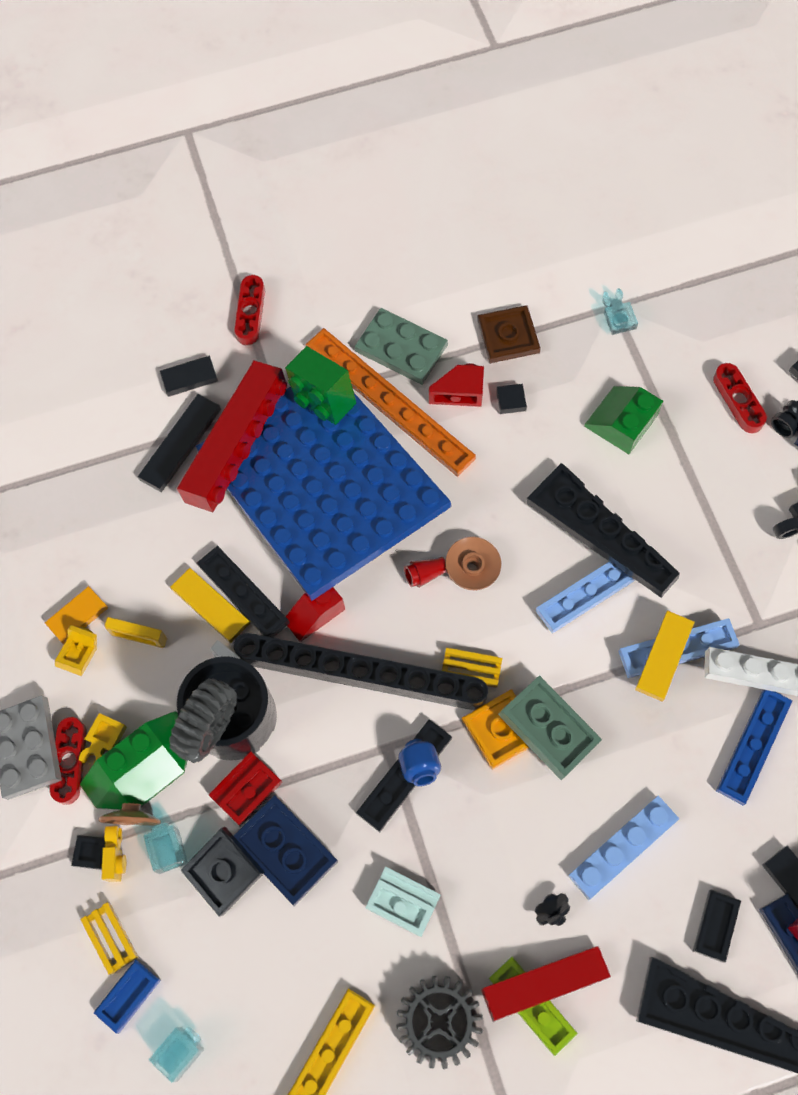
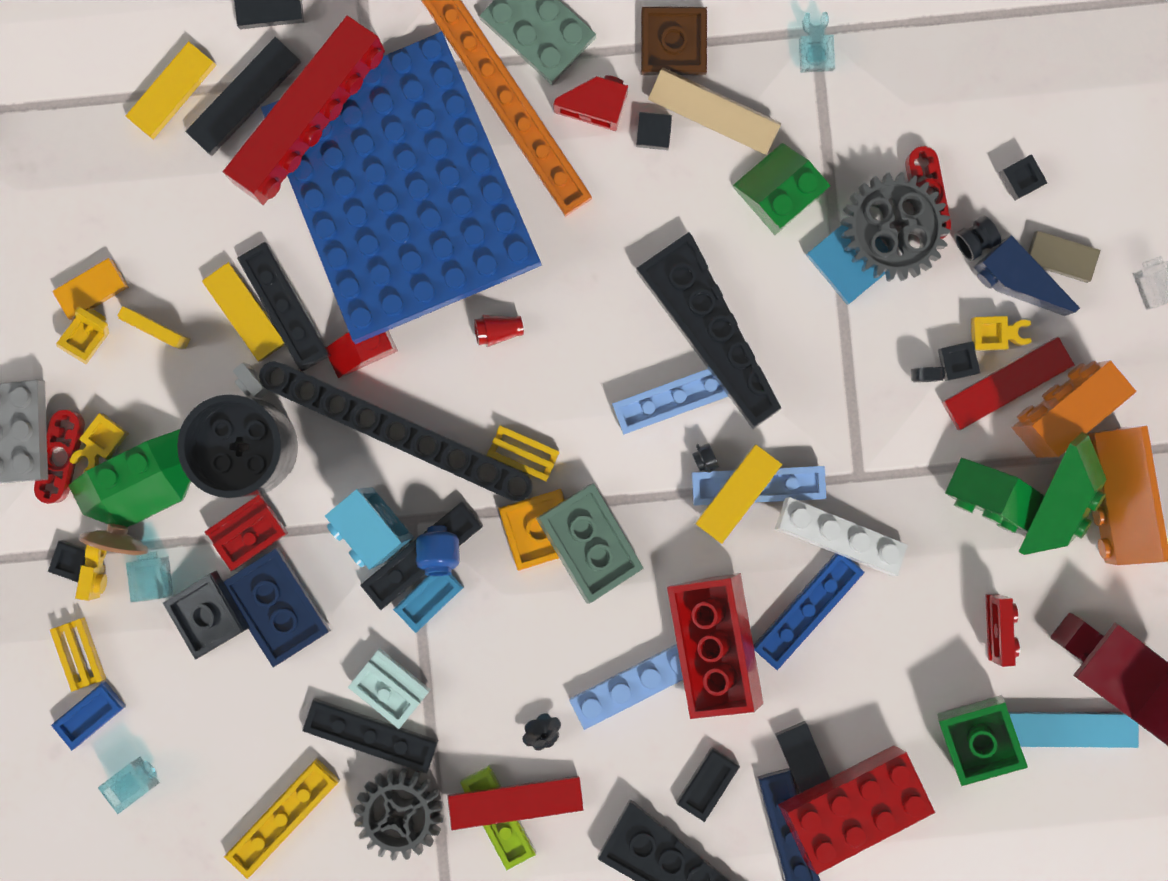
camera: 15 degrees right, 20 degrees up
(120, 450) = (170, 90): none -> yellow tile
(203, 720) = (199, 473): dark grey gear -> none
(321, 385) = (418, 74): green brick -> none
(357, 749) = (368, 527): none -> medium azure brick
(395, 953) = (370, 735): none -> black tile
(419, 812) = (427, 600): none -> dark azure tile
(474, 551) = (554, 316): nougat dish -> none
(555, 373) = (714, 111): none -> tan tile
(627, 635) = (705, 458): none -> black plate
(685, 792) = (715, 646): none -> red slope
(696, 456) = (838, 268): none -> dark azure tile
(723, 422) = (924, 224): none -> dark grey gear

